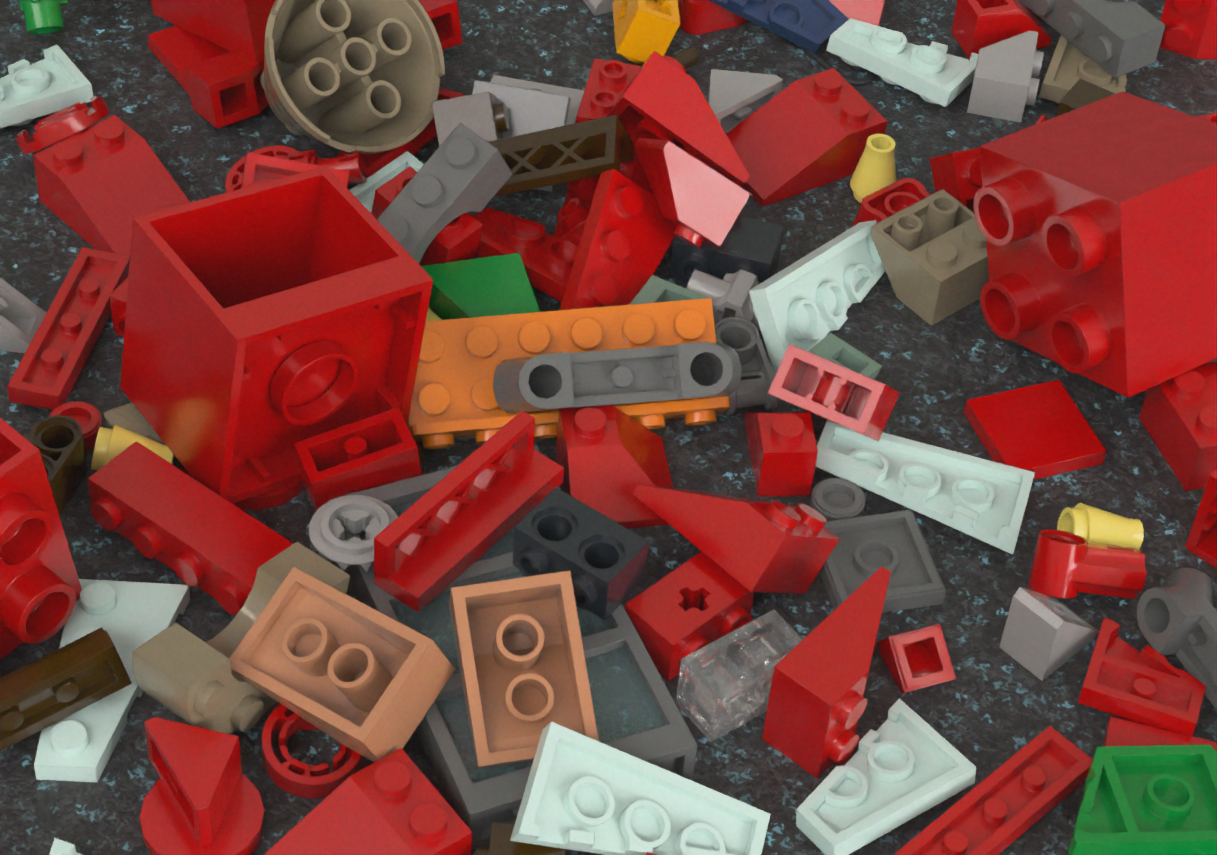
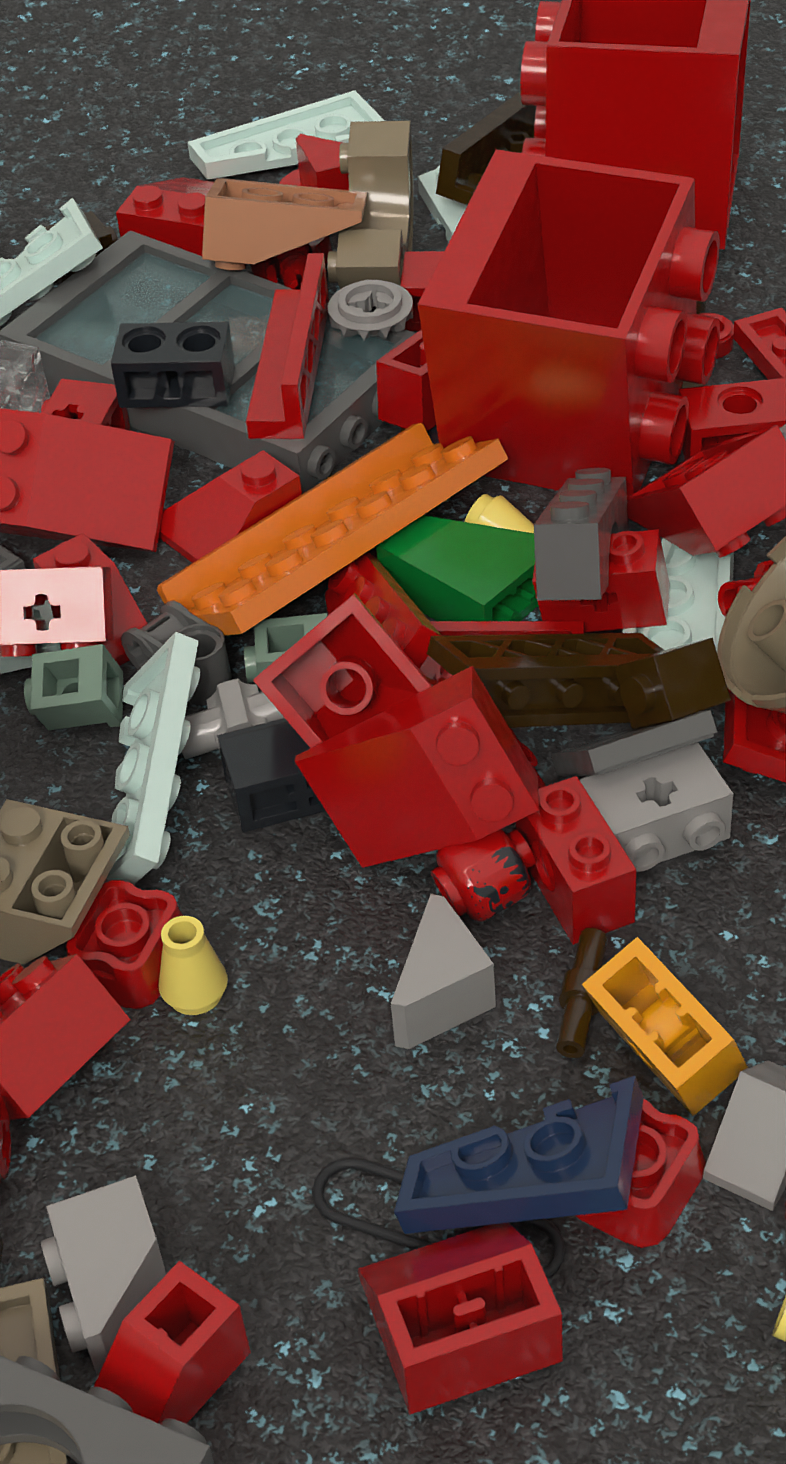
camera: 155 degrees right, 0 degrees up
(520, 664) = (163, 281): nougat slope -> none
(616, 377) = (189, 528): dark grey plate -> none
(805, 137) = (310, 987): red slope -> none
(918, 68) = (274, 1212): light aqua wing -> none

